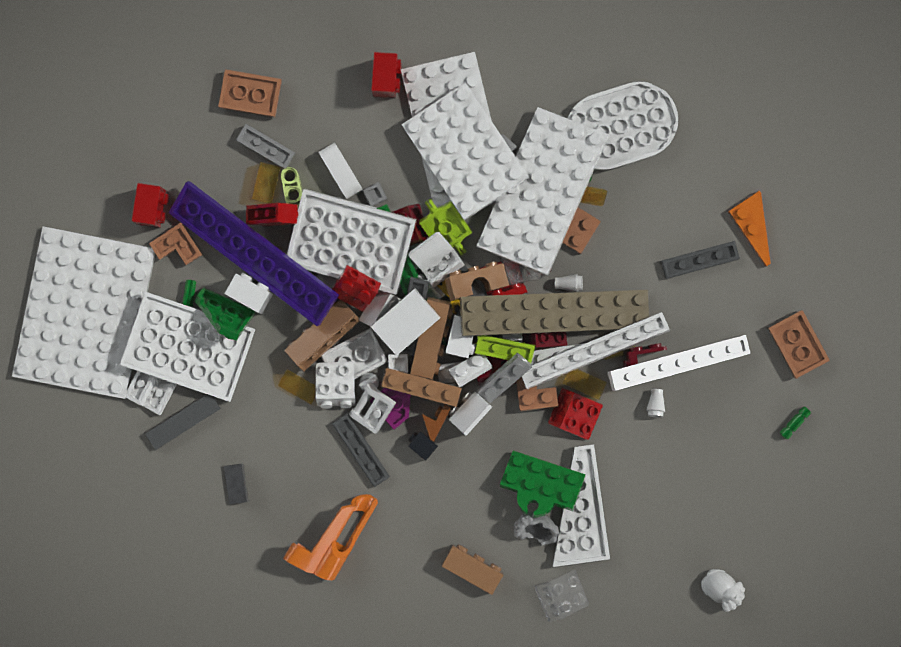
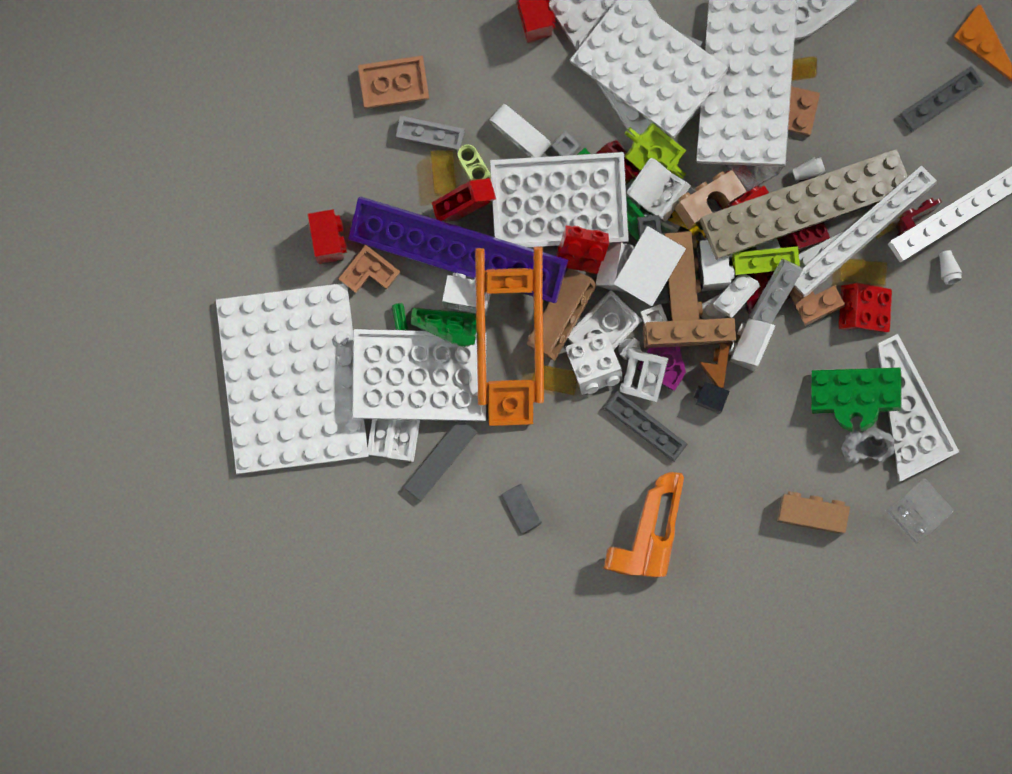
camera: 15 degrees left, 5 degrees down
(255, 392) = (509, 400): none -> orange plate

